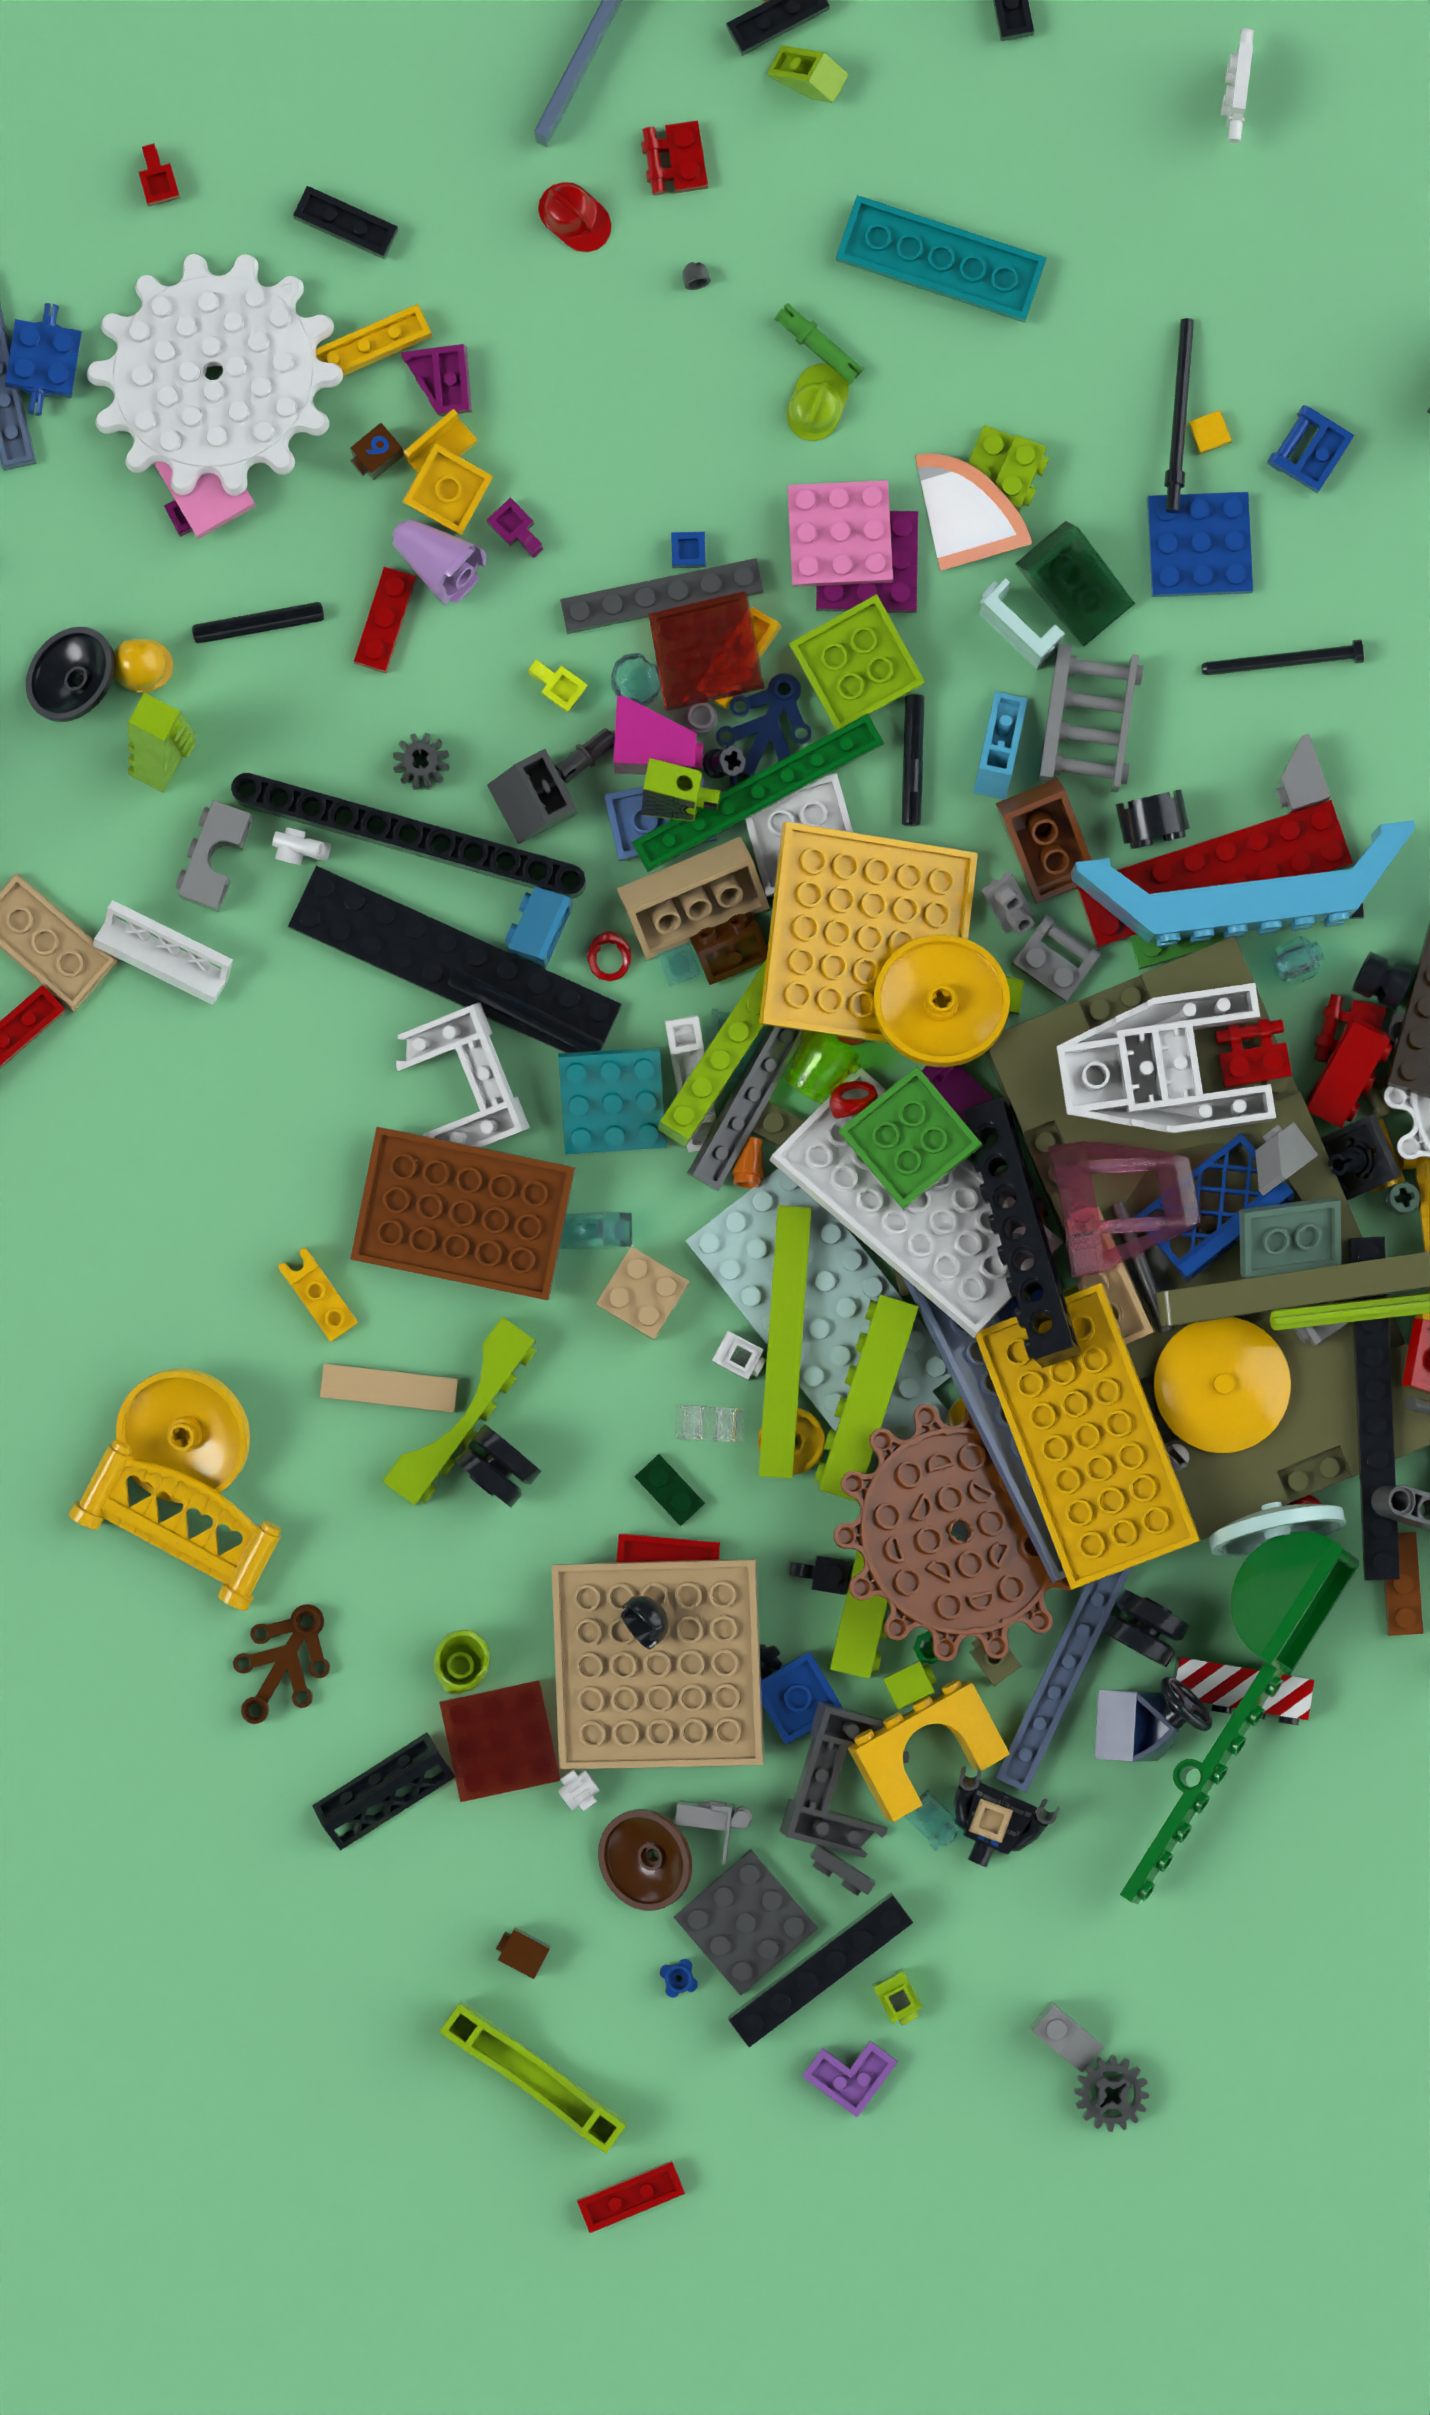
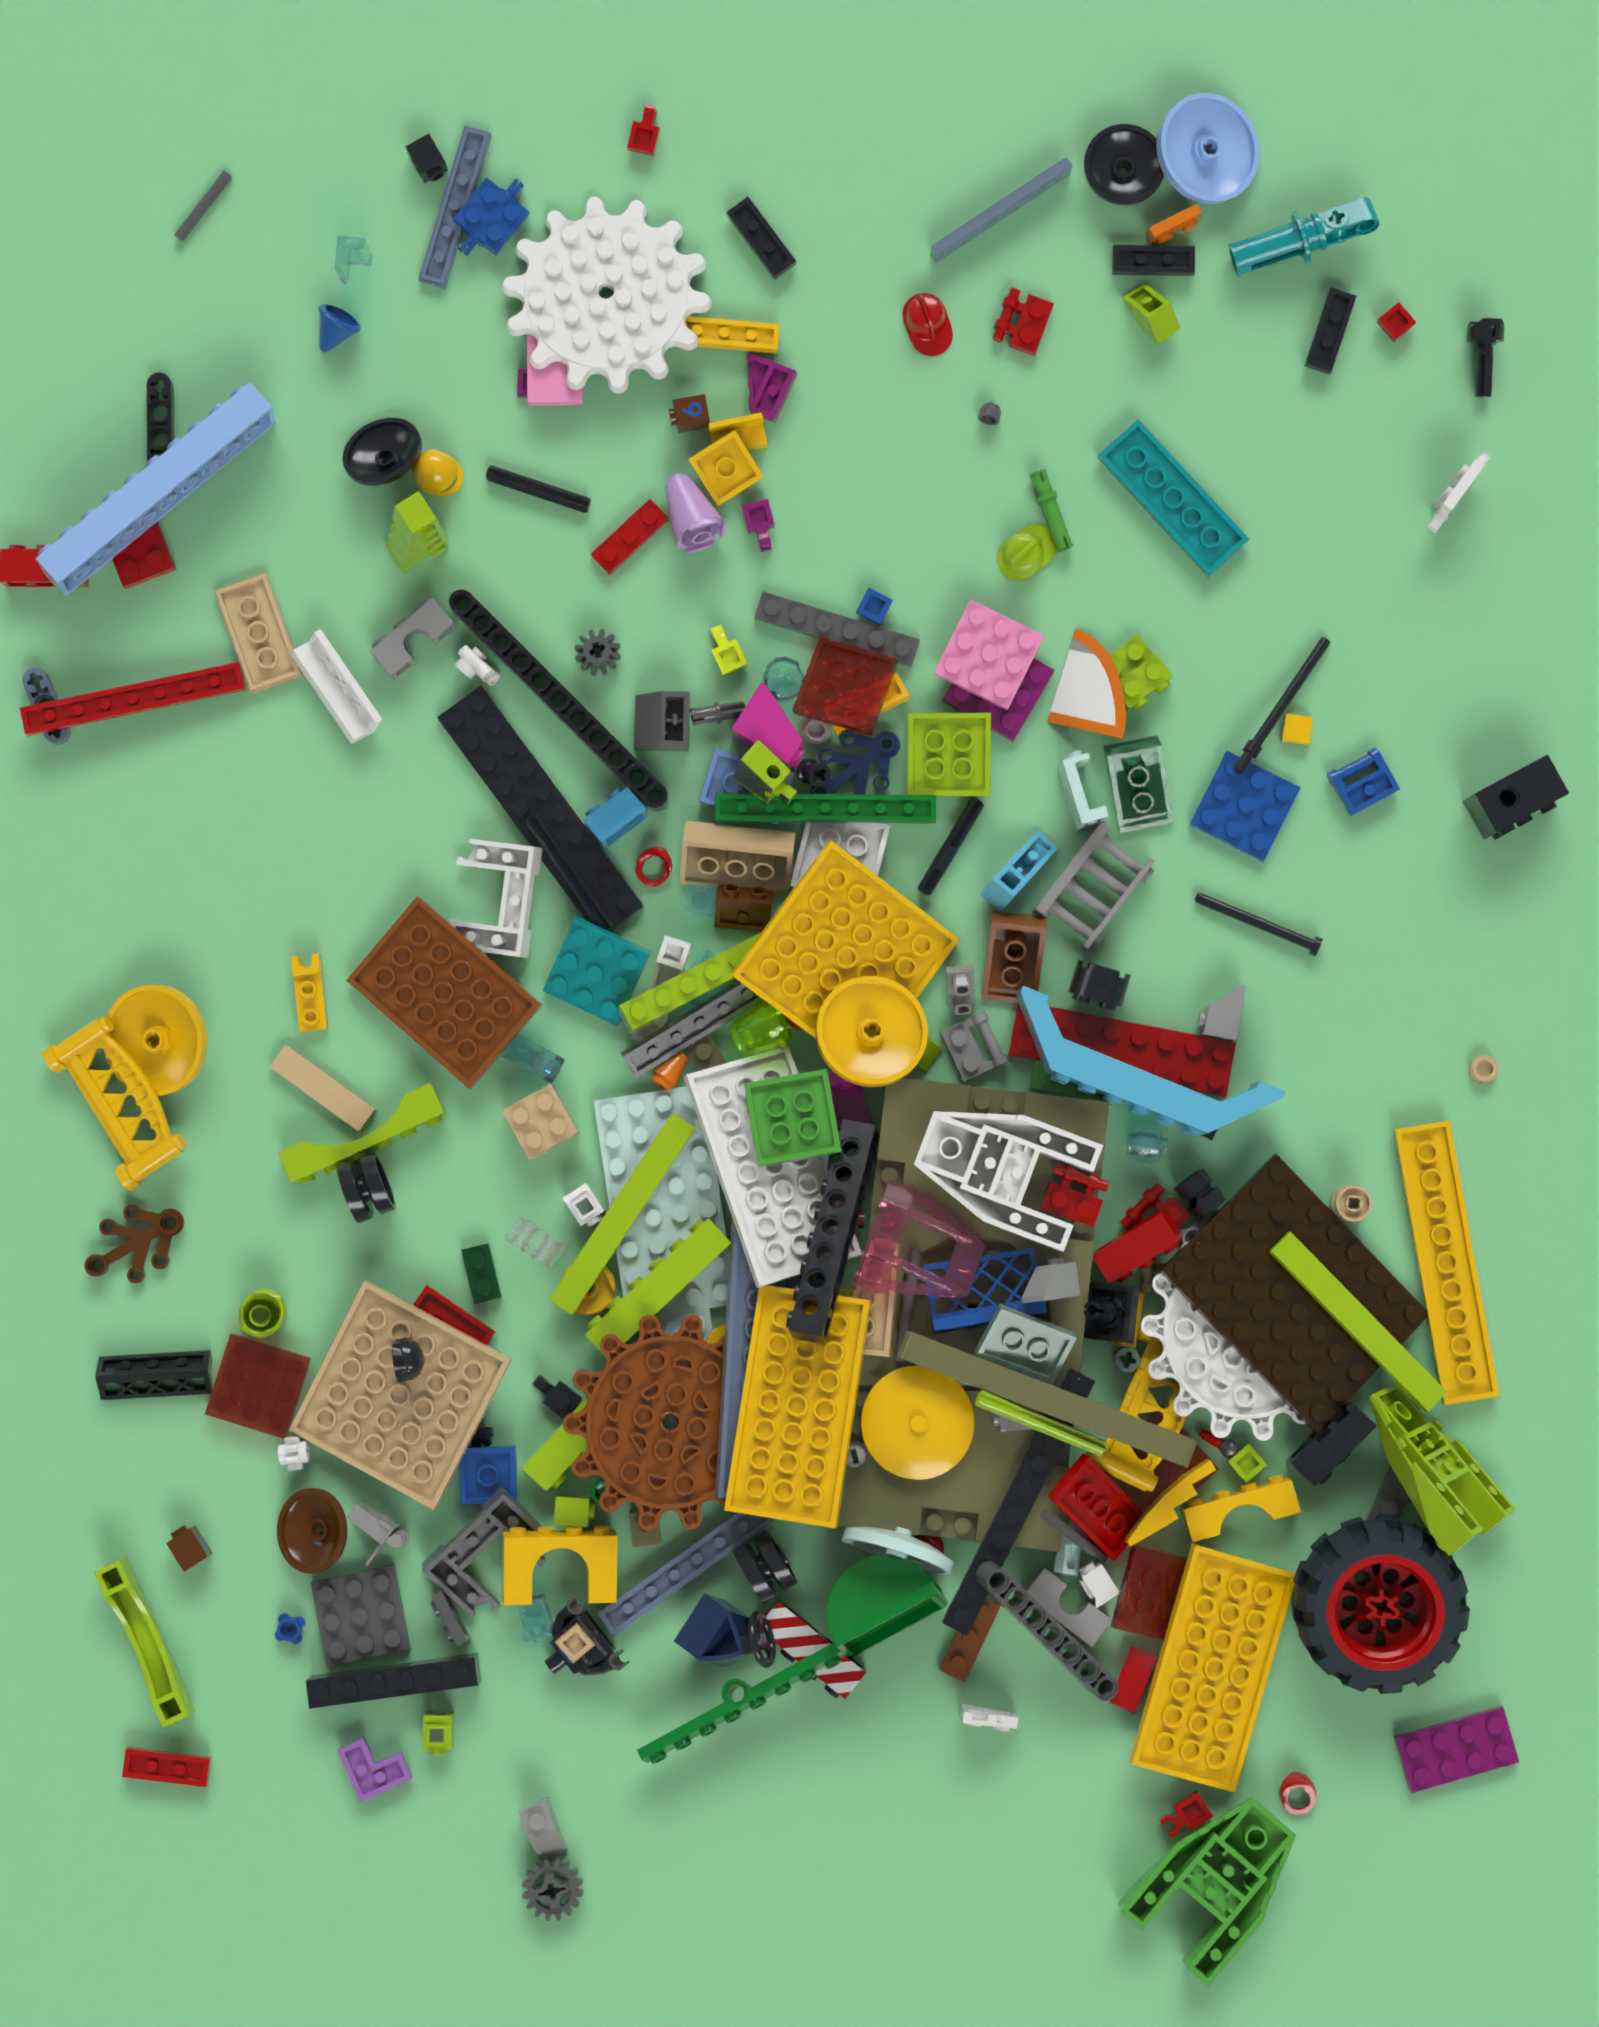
camera: 25 degrees right, 0 degrees up
(842, 1107) = (759, 1070): red piece -> none

